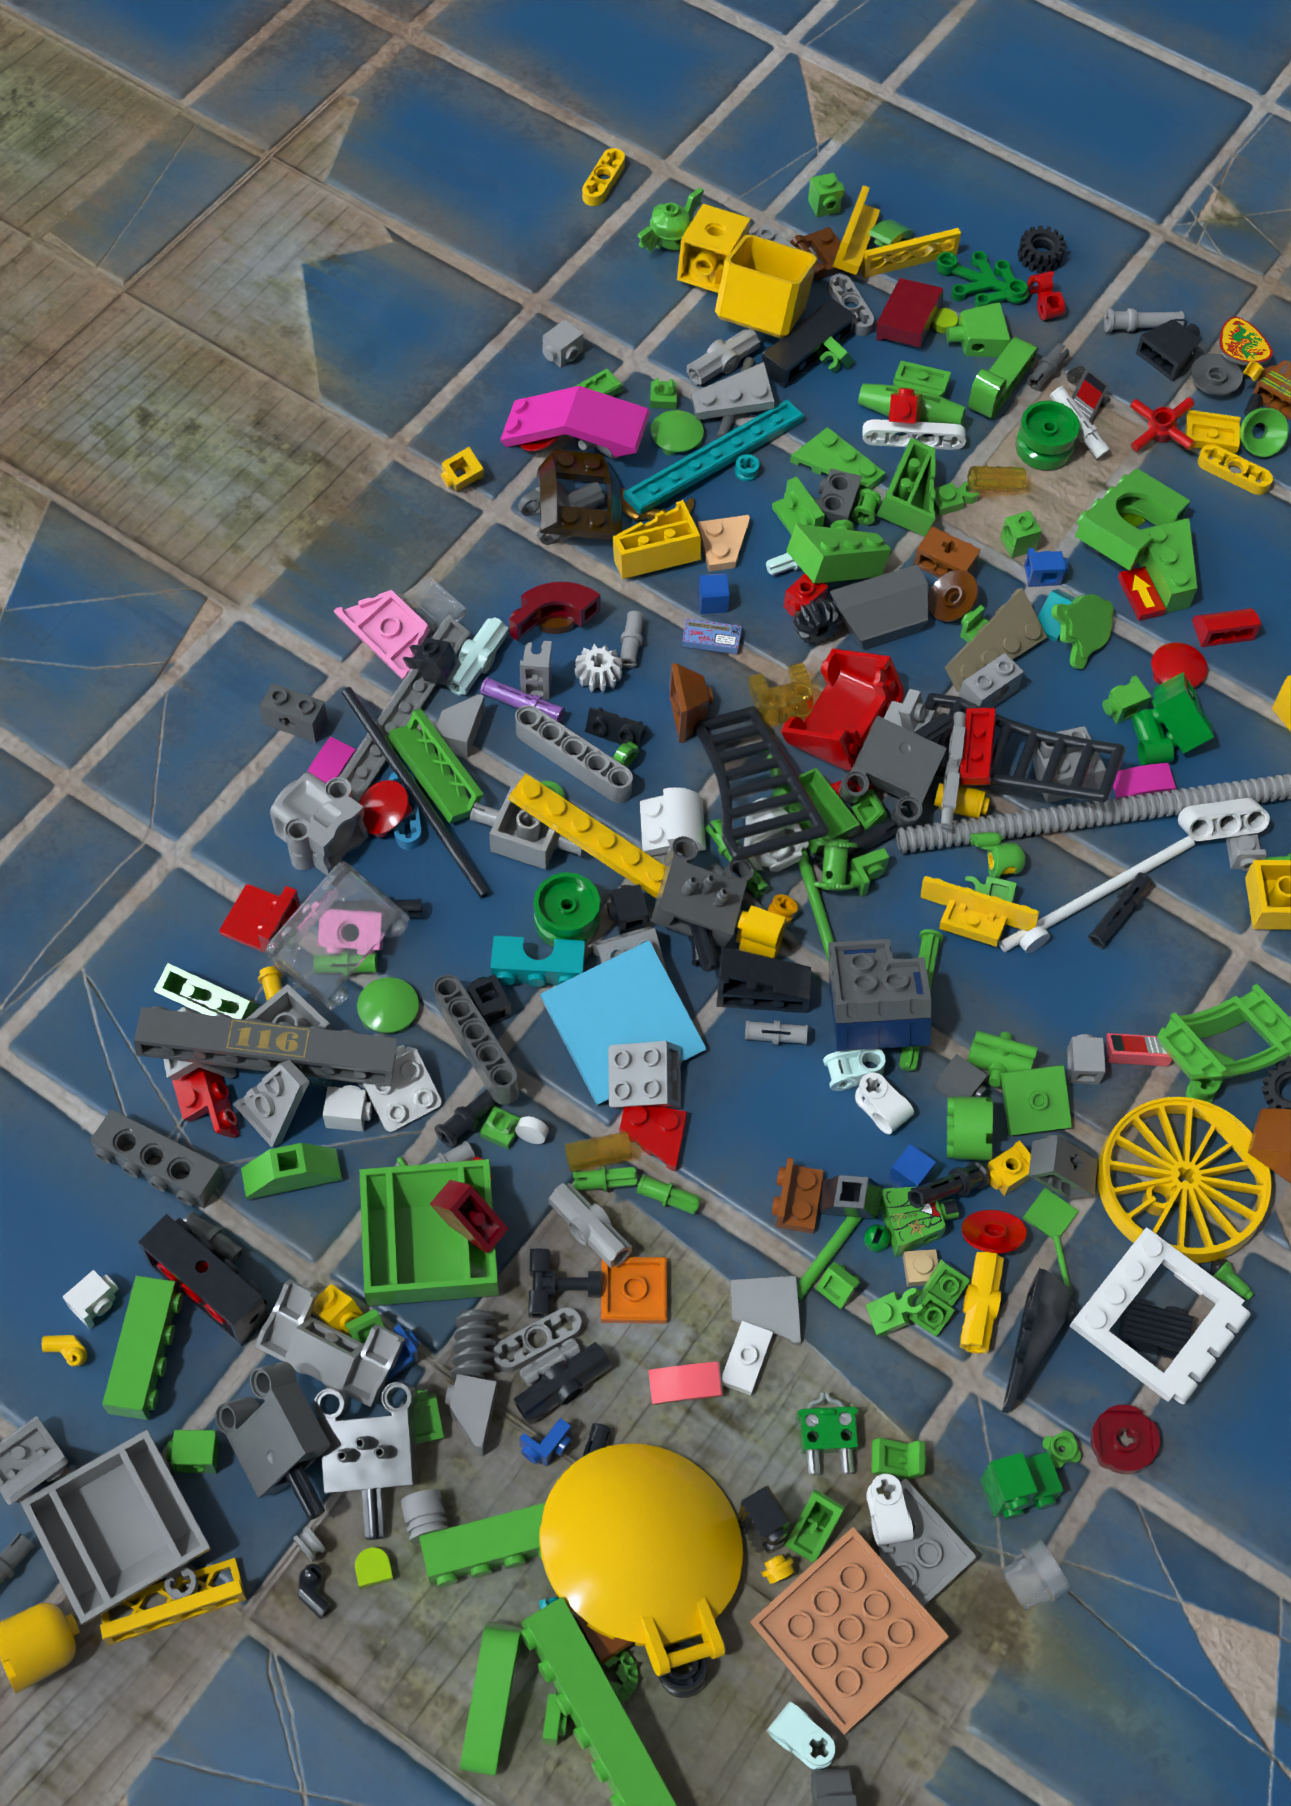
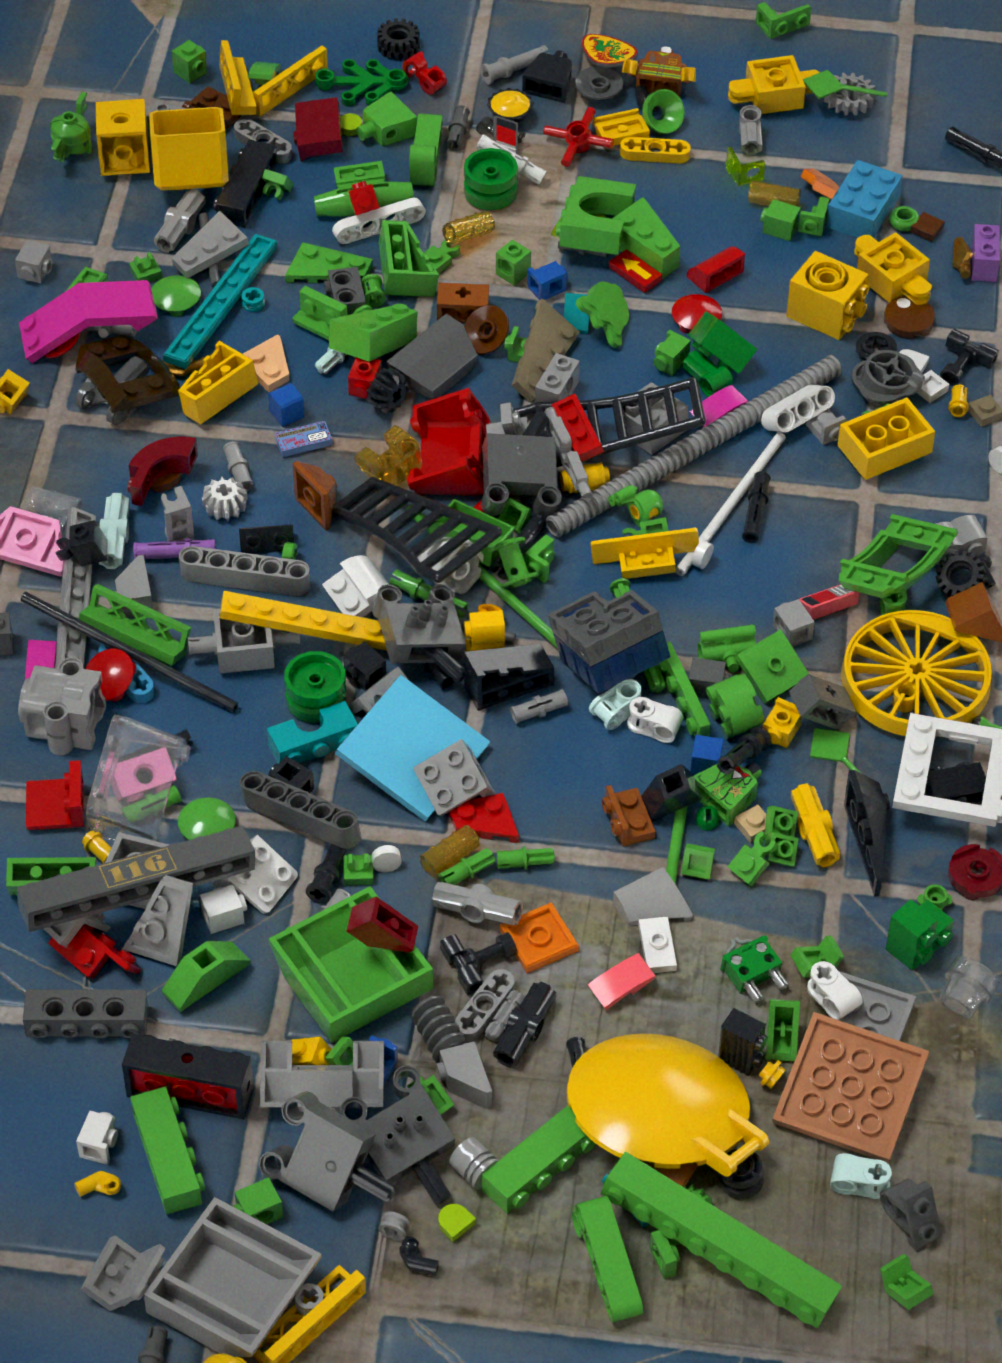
camera: 25 degrees left, 10 degrees down
(554, 1443) = (538, 1079): blue bracket -> none
(926, 1098) = (686, 698): none -> bright green plate
(994, 1231) = (795, 771): red dish -> none
(1112, 363) = (510, 104): none -> yellow piece

